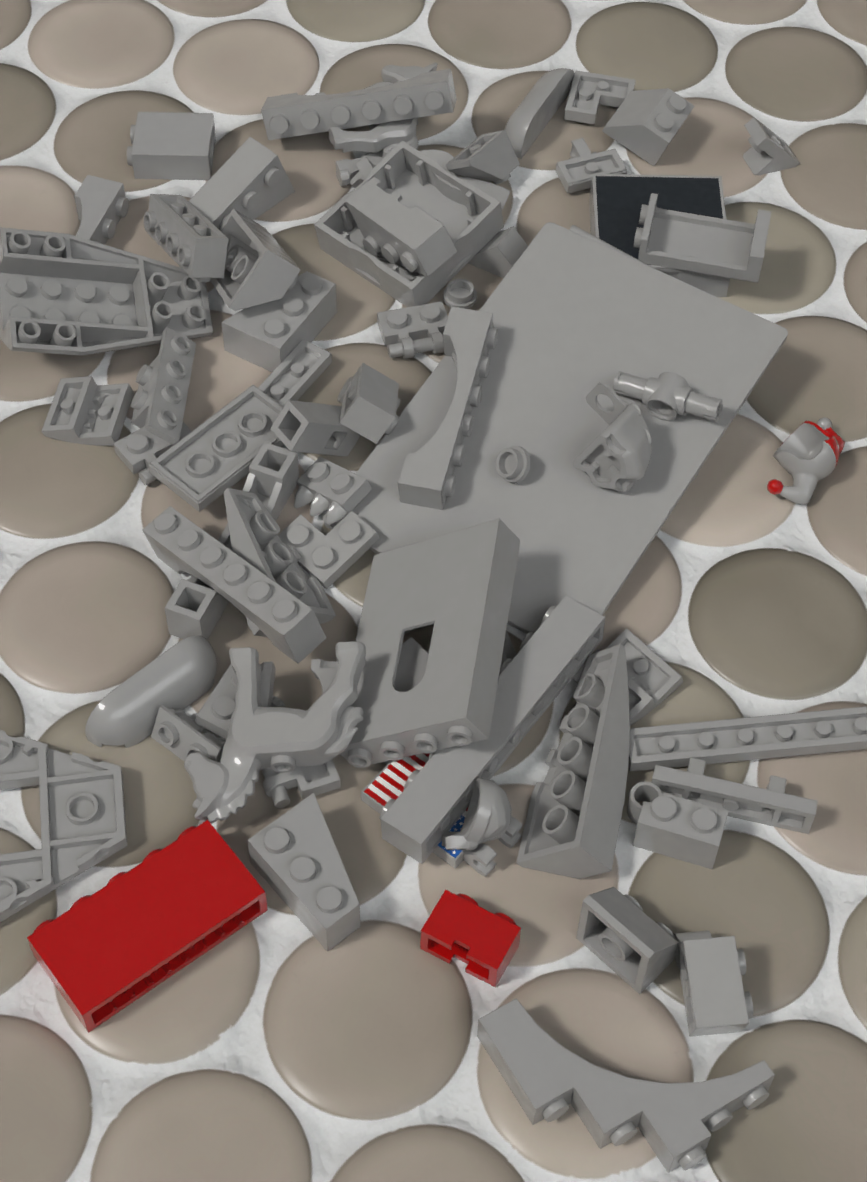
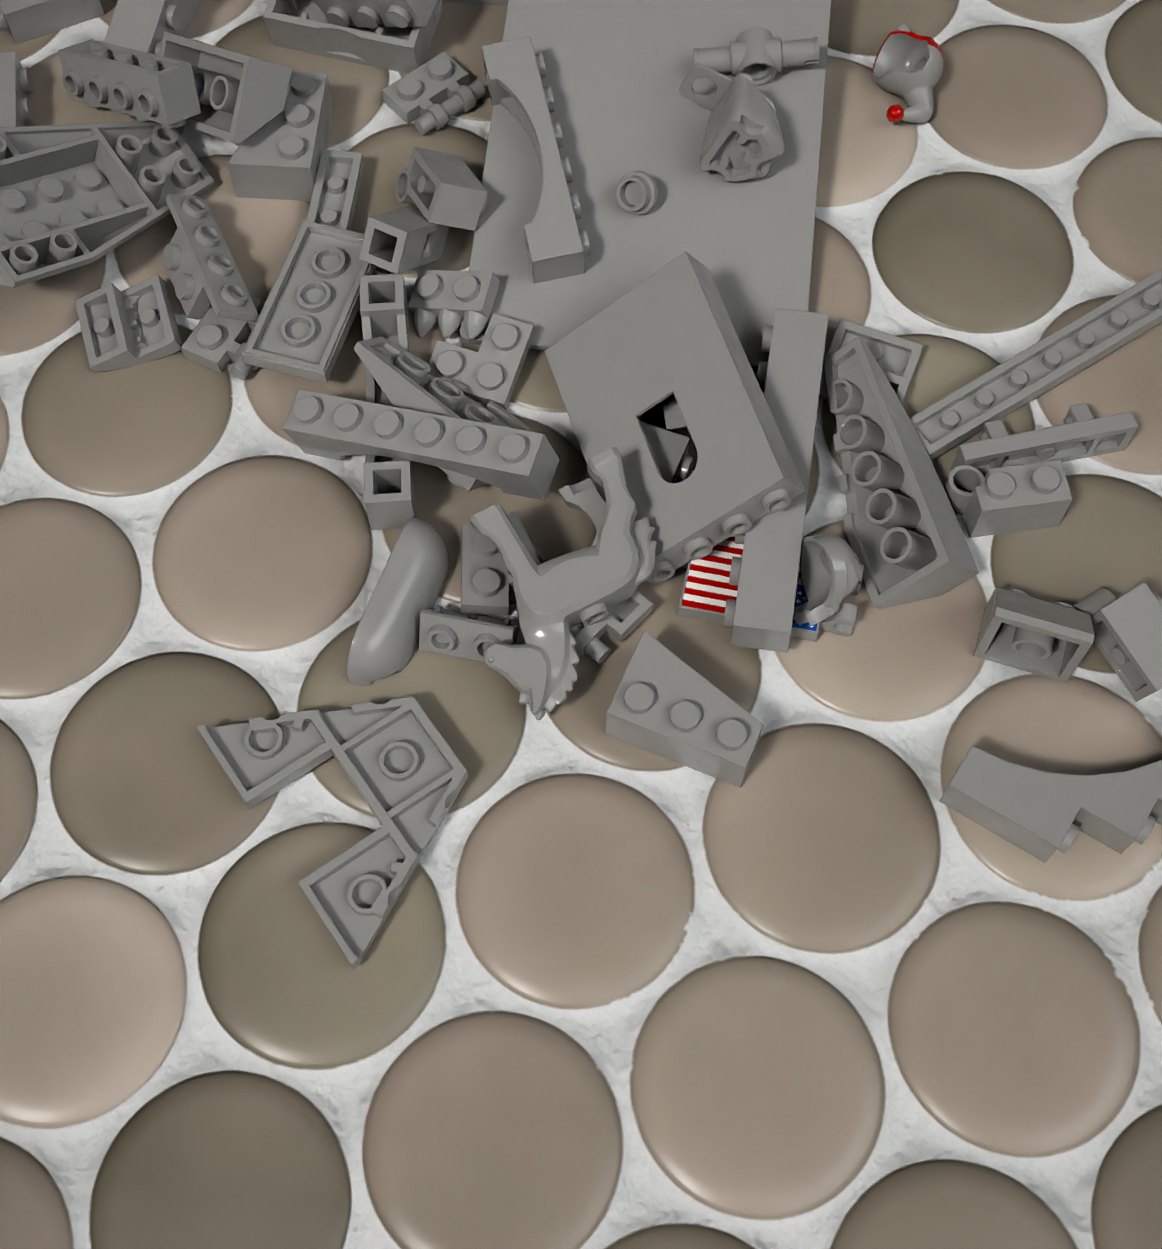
camera: 25 degrees left, 10 degrees up
(147, 924) = (544, 851): red brick -> none
(460, 294) = (457, 37): light grey plate -> none
(472, 935) = (882, 702): red brick -> none

